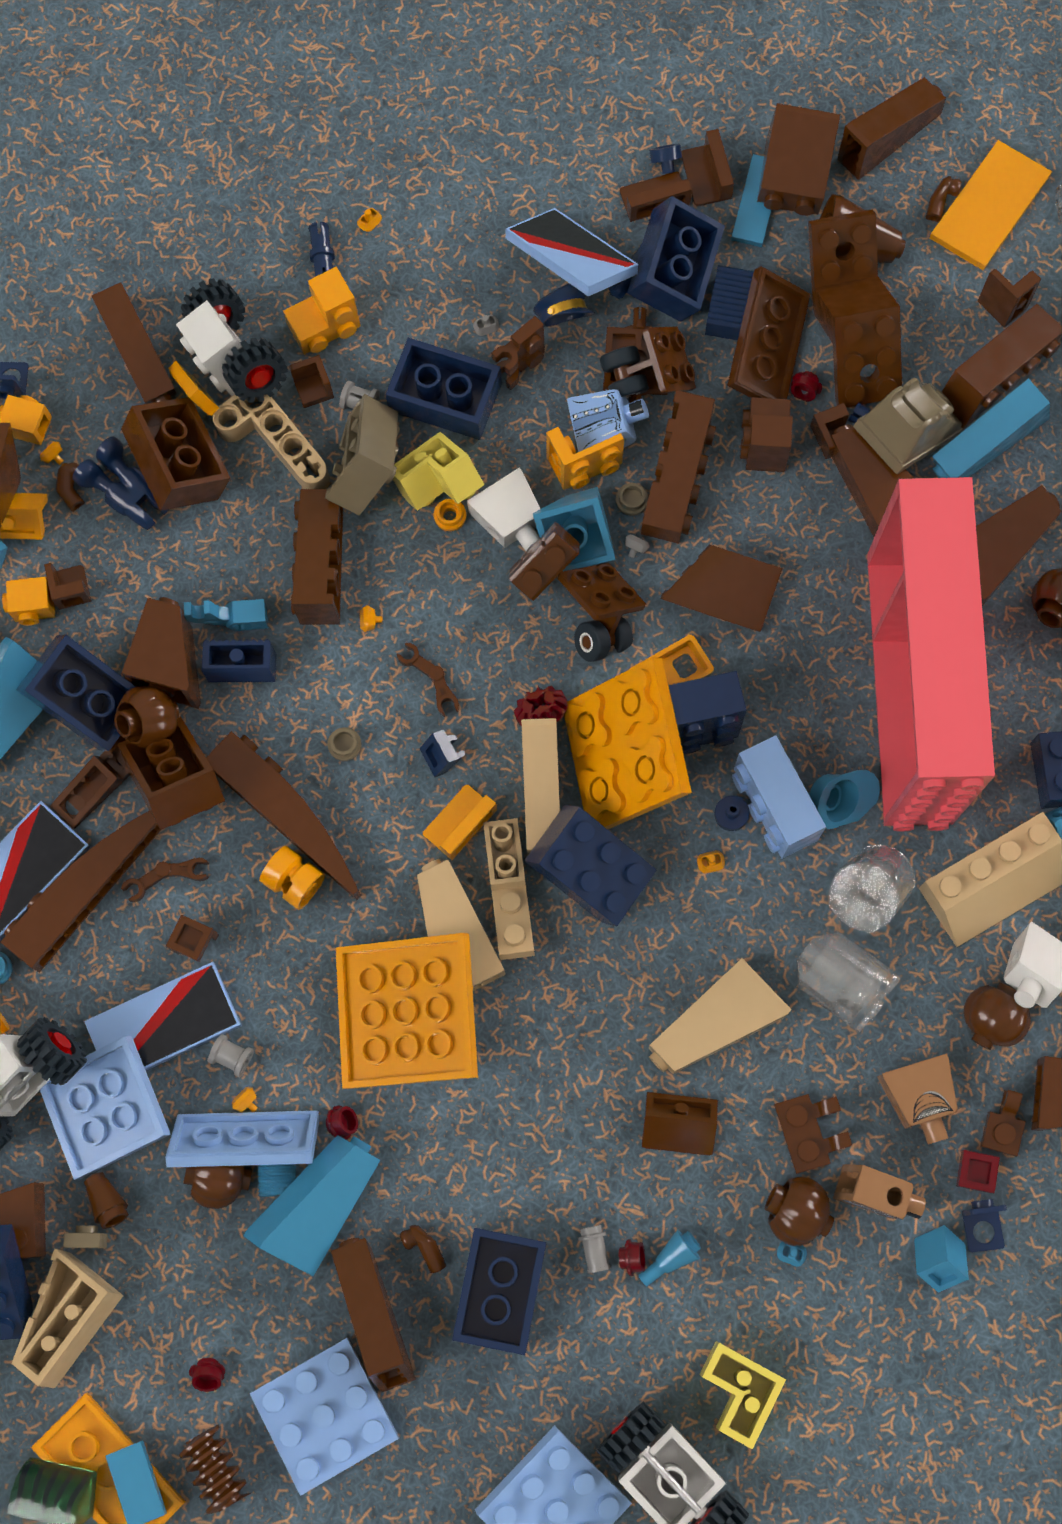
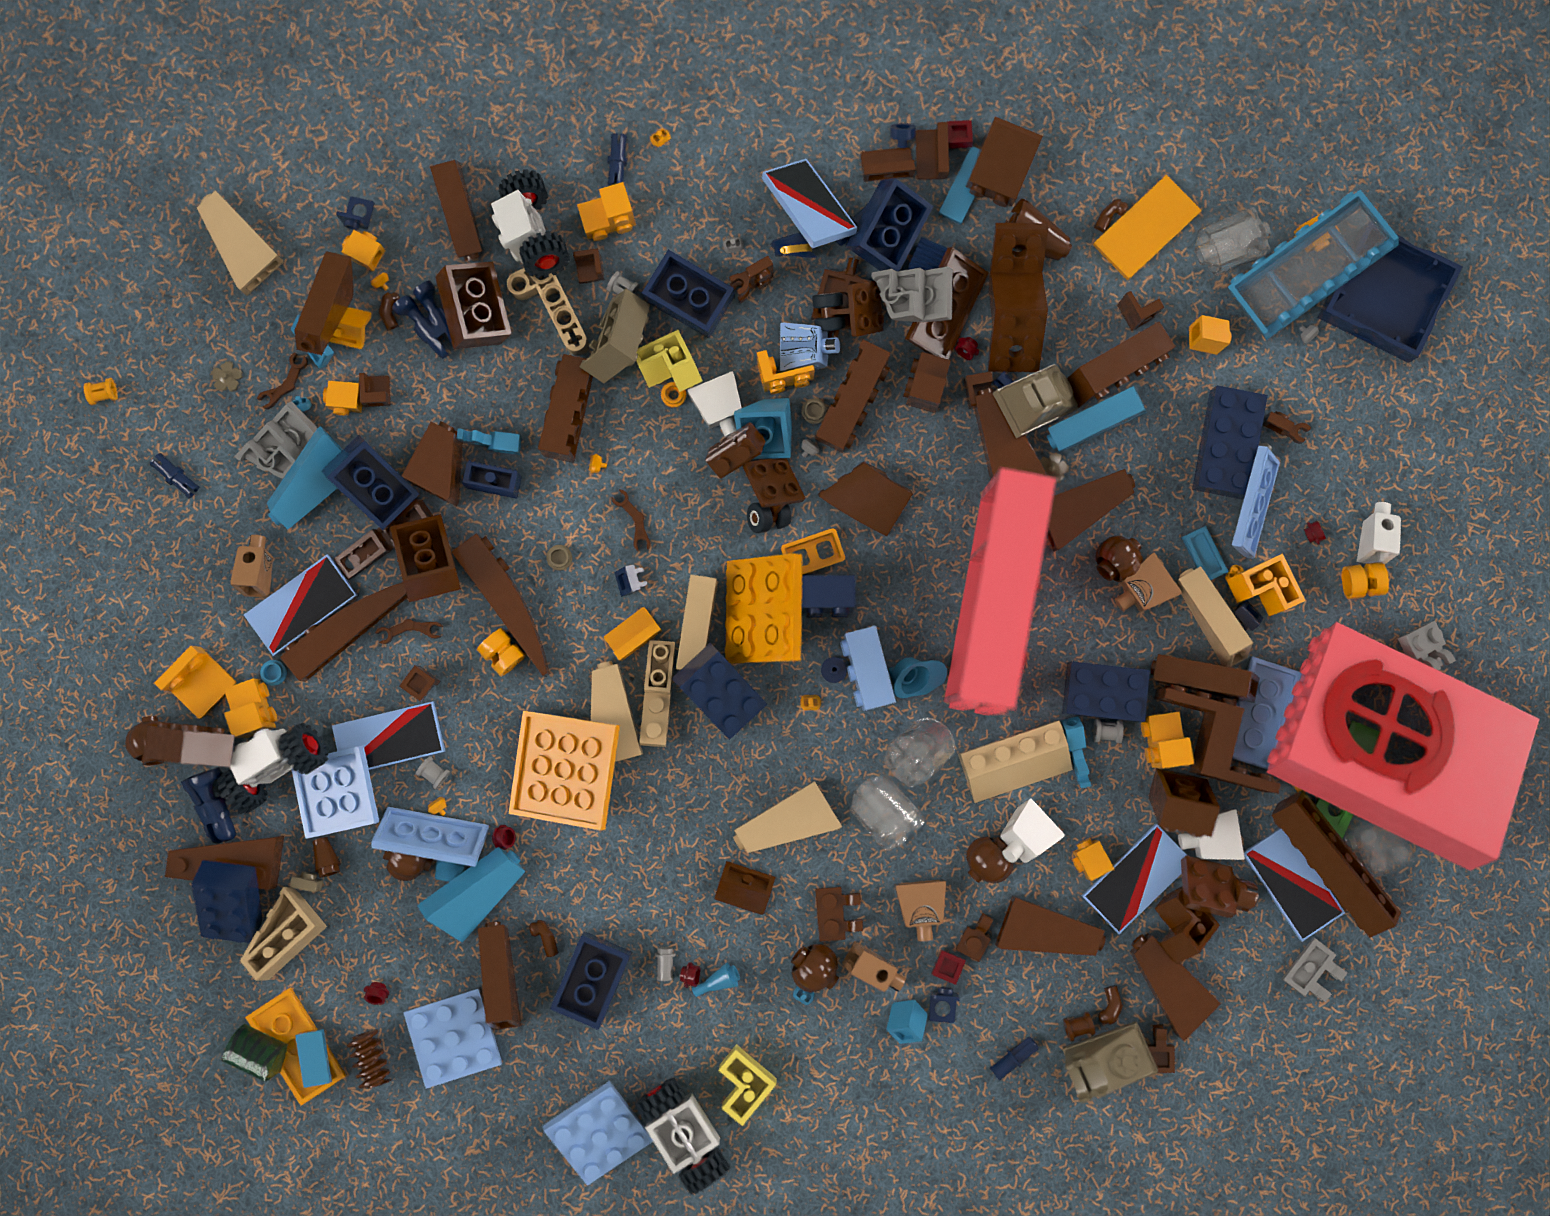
camera: 10 degrees right, 10 degrees up
(146, 712) = (415, 507): reddish brown plant -> none
(193, 388) = (496, 254): light orange tile -> none
(555, 705) = (710, 569): dark red gear -> none
(730, 326) = (916, 293): none -> light grey slope
(737, 142) = (960, 134): none -> dark red plate
(889, 126) = (1084, 146): reddish brown slope -> none

